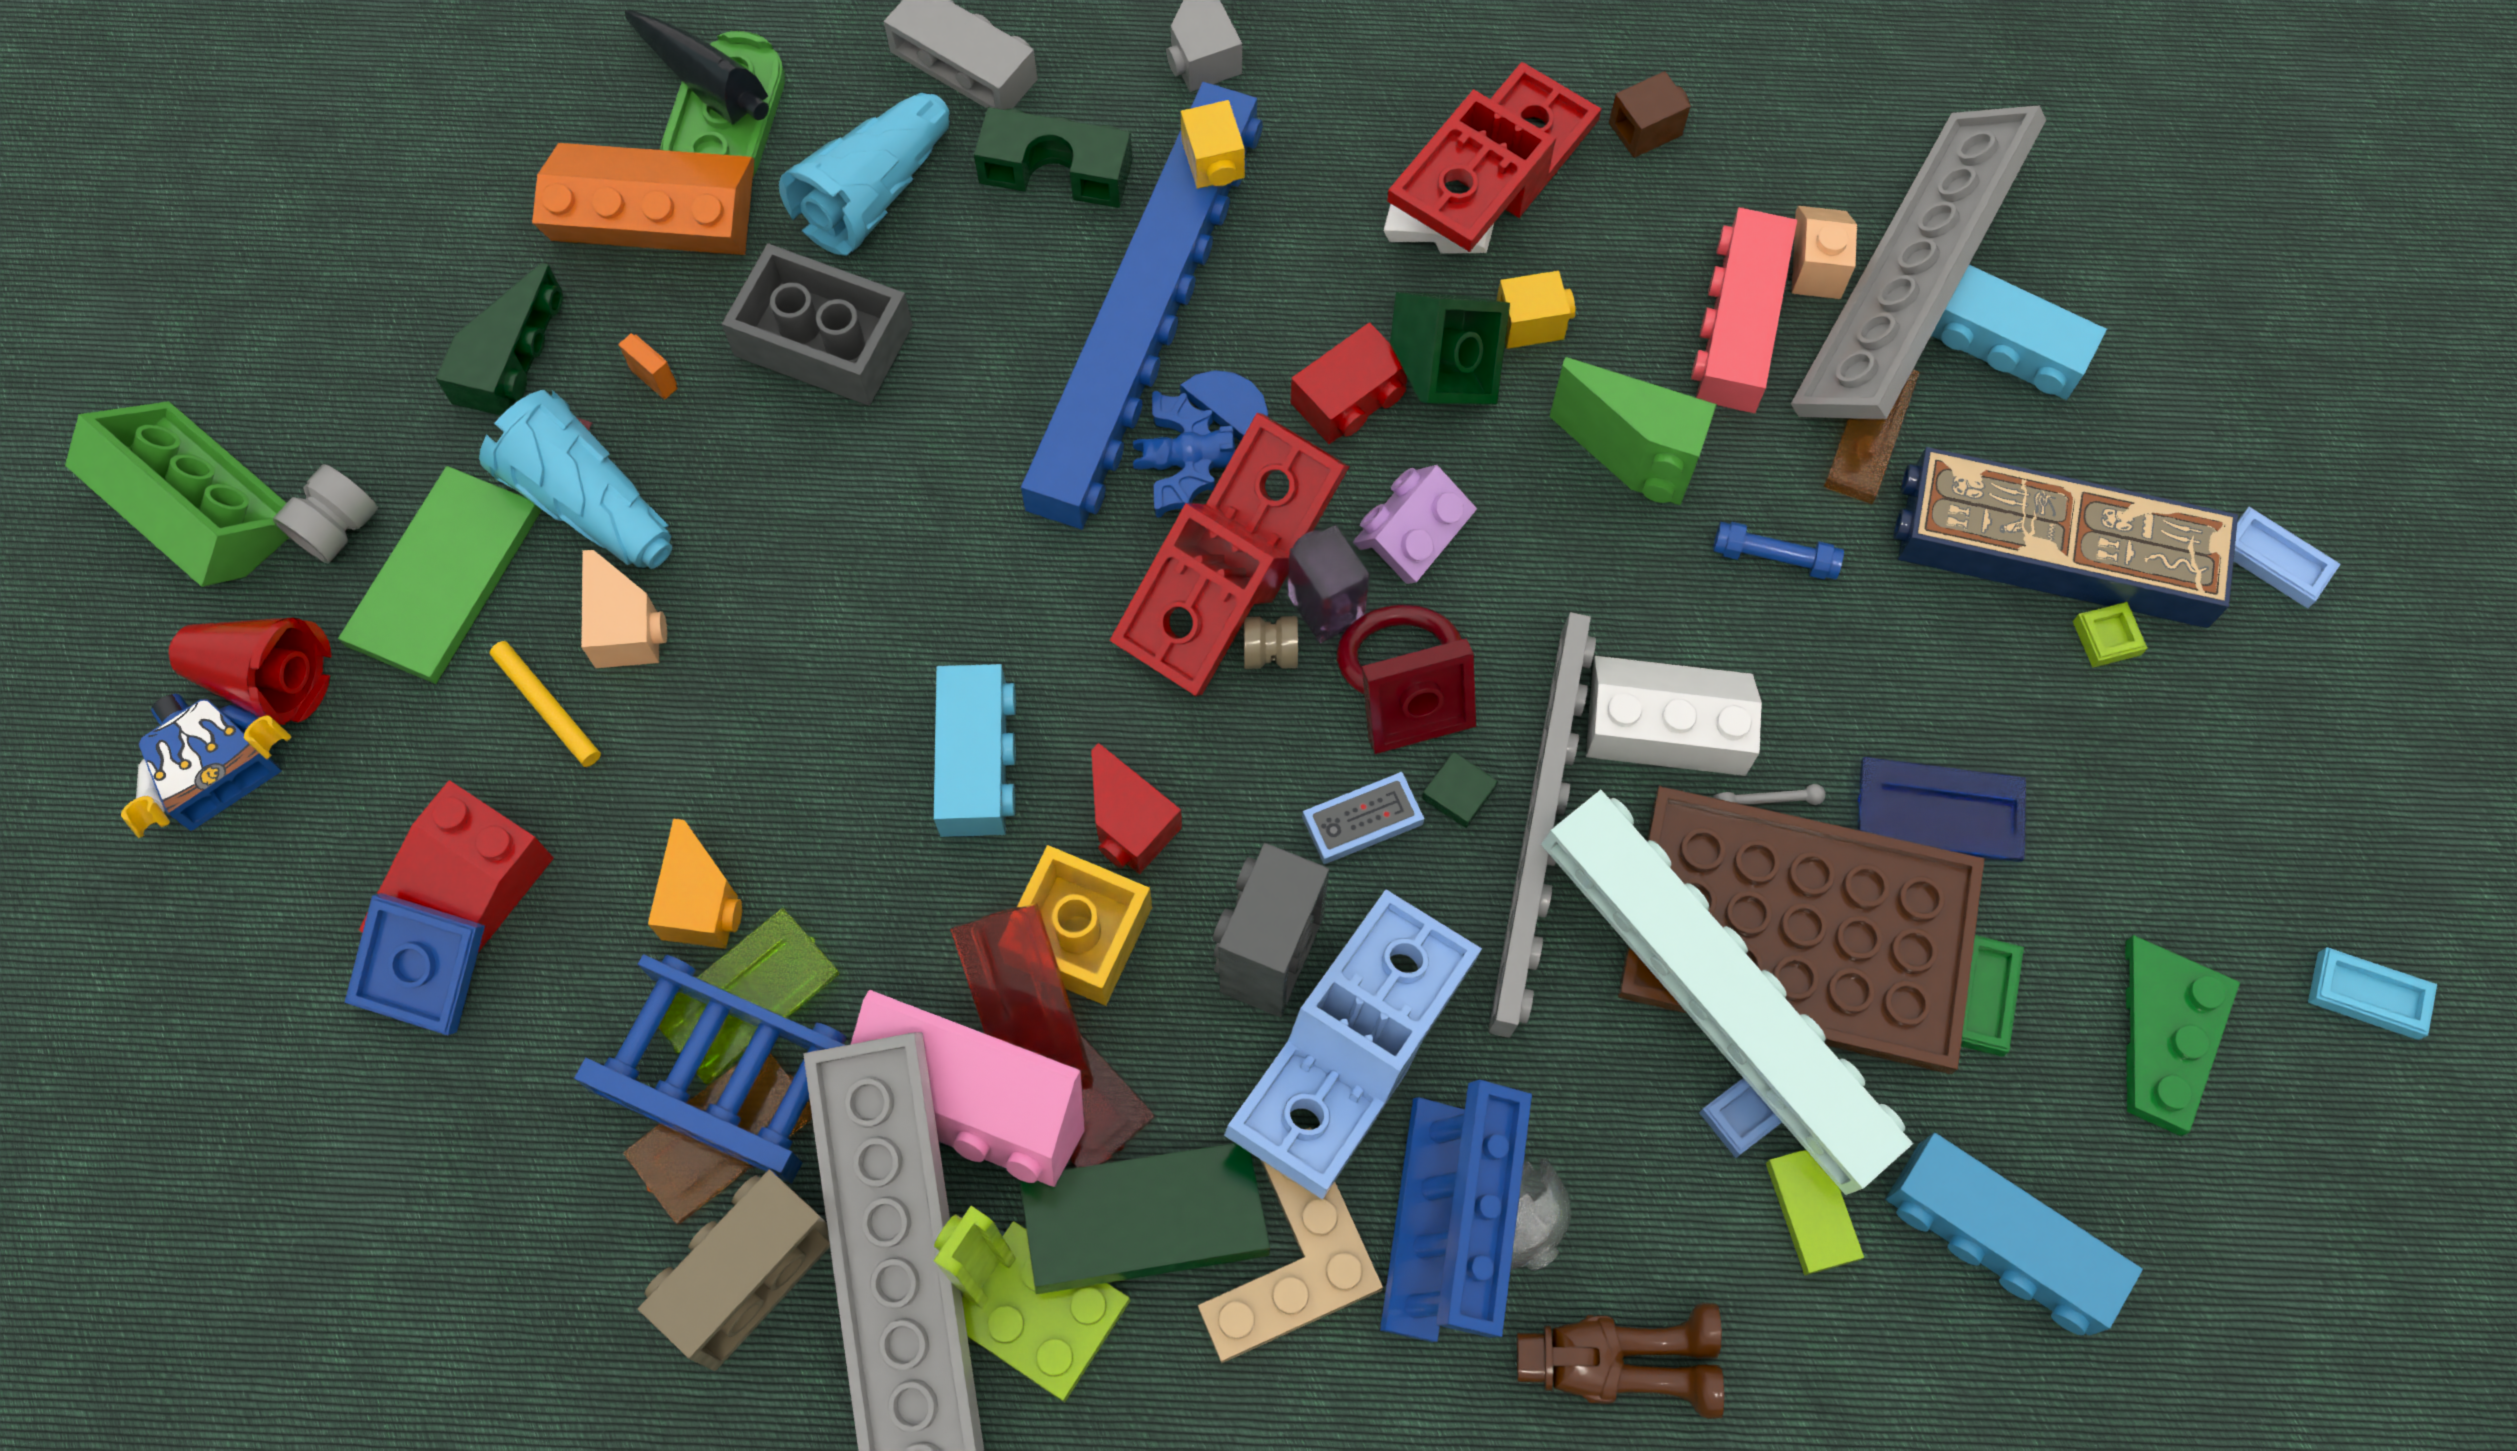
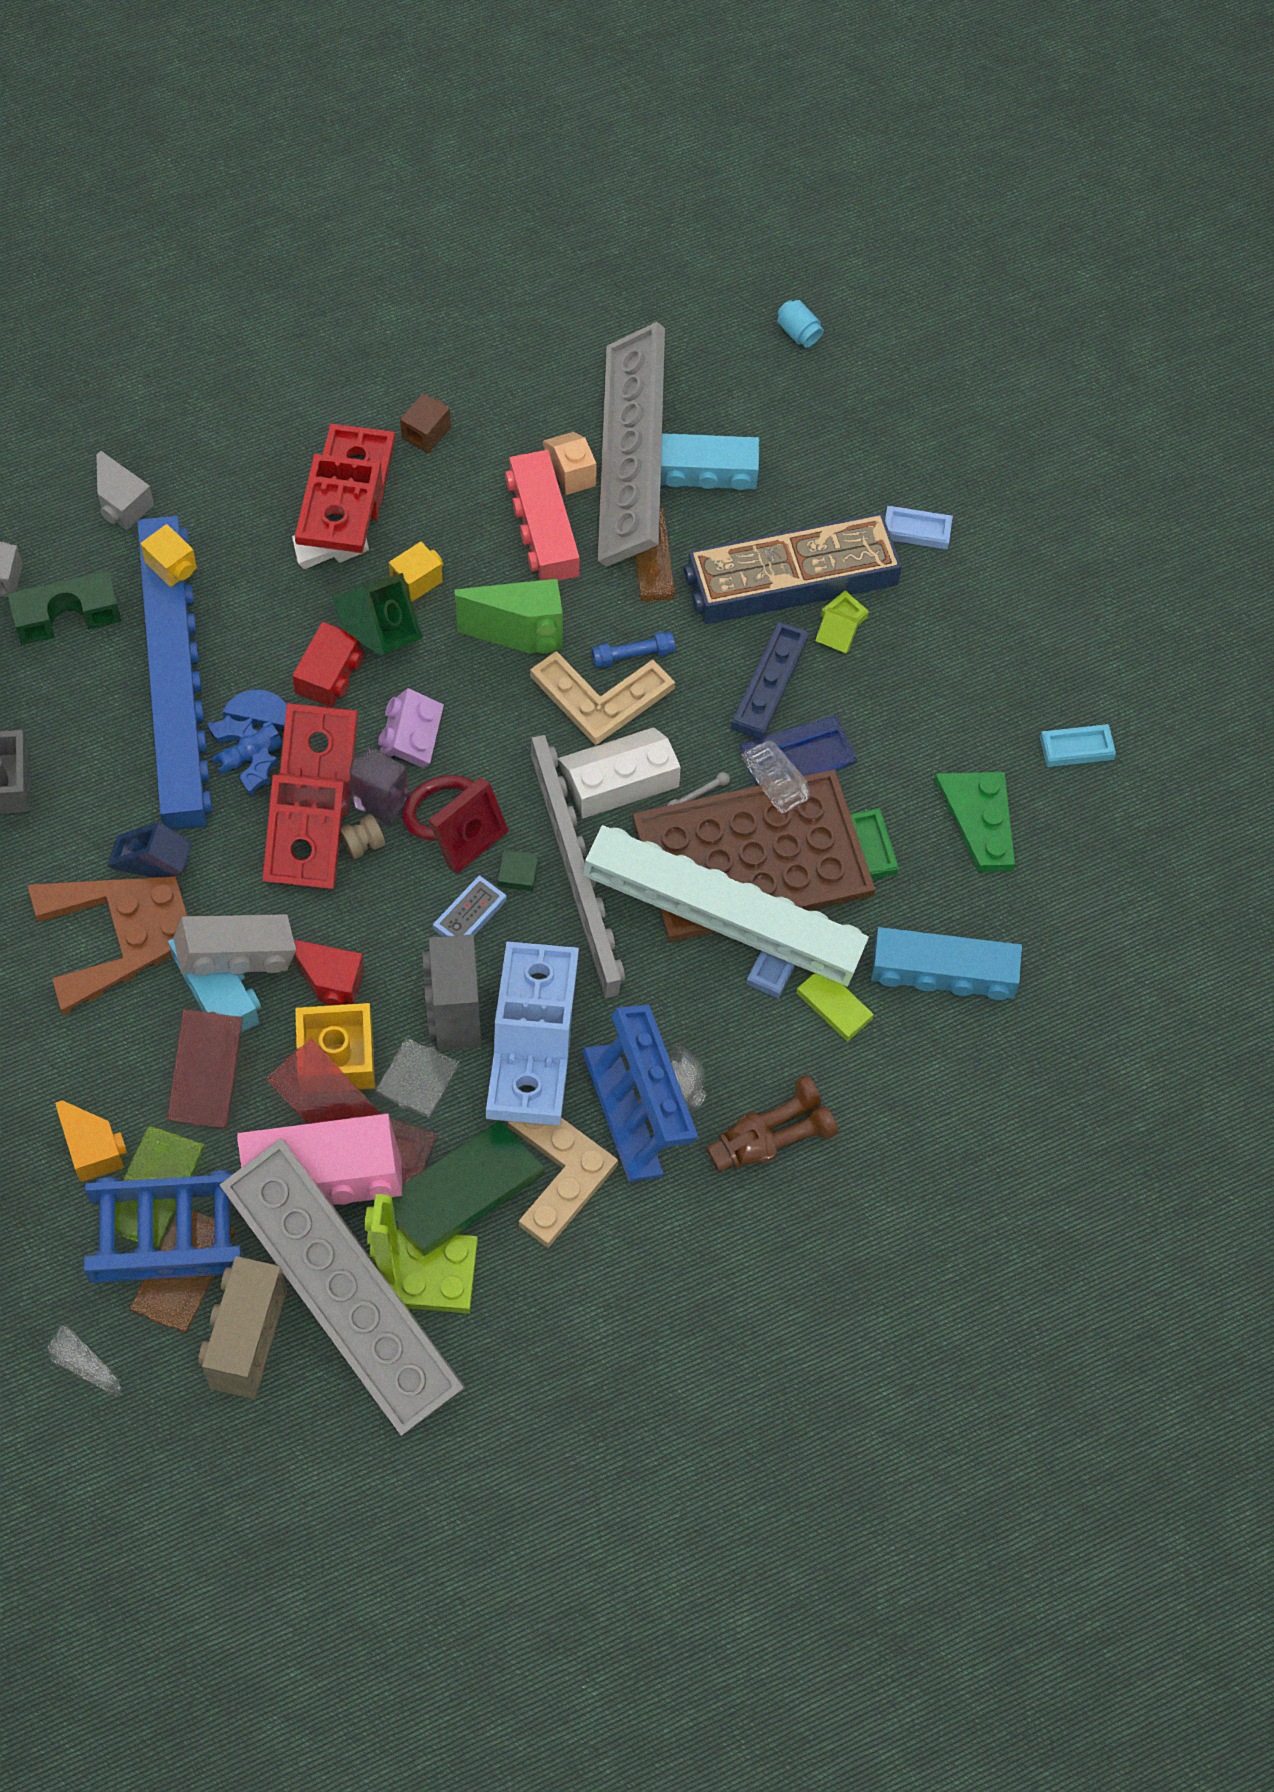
camera: 30 degrees left, 5 degrees down
(515, 1188) = (74, 1355): none -> clear slope
(893, 866) = (205, 1068): none -> clear red piece
(934, 616) = (144, 920): none -> dark orange wing
(987, 533) = (150, 852): none -> dark blue slope
(1015, 715) = (234, 944): none -> light grey brick
(1171, 1019) = (417, 1077): none -> clear piece
(1695, 625) = (603, 714): none -> tan plate
(1898, 862) = (788, 792): none -> clear slope
(1952, 683) = (770, 680): none -> dark blue tile
(2087, 655) = (837, 630): none -> lime tile
(2244, 194) = (799, 323): none -> medium azure brick

